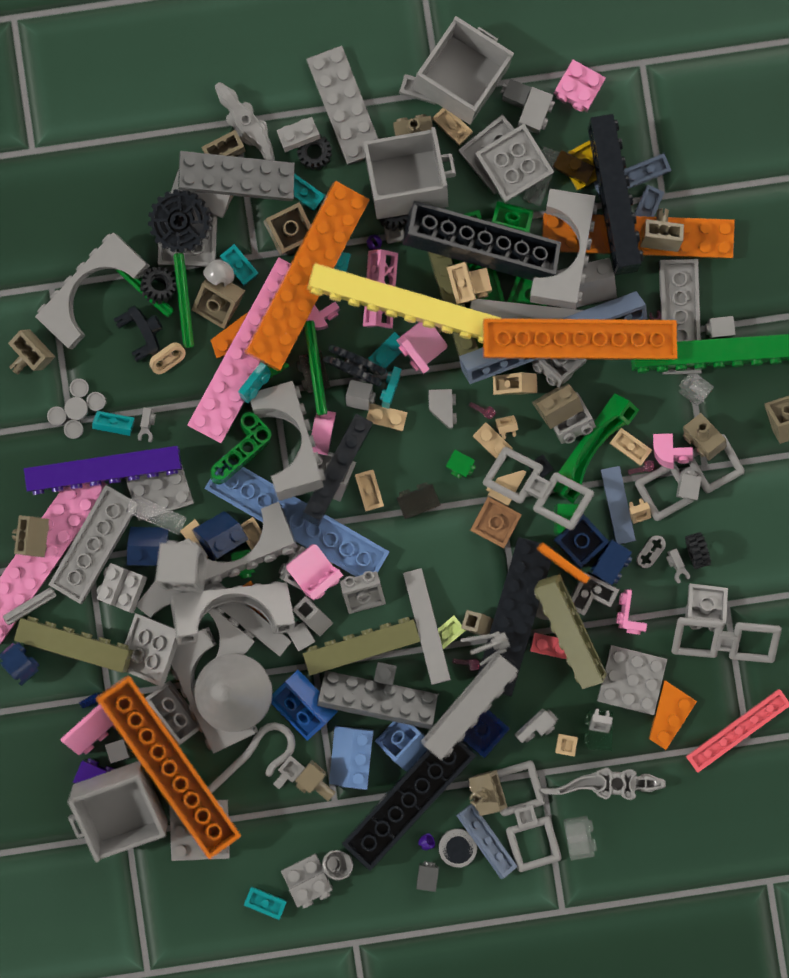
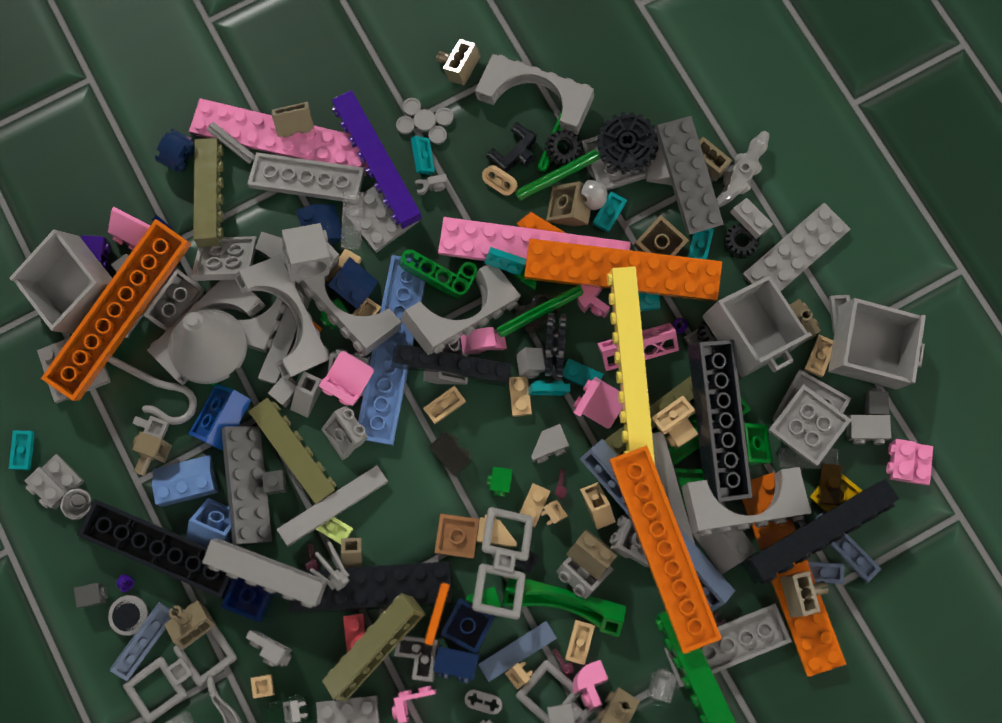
camera: 75 degrees right, 10 degrees down
(121, 587) = (274, 214): light grey plate -> none
(720, 327) = (733, 690): light grey brick -> none

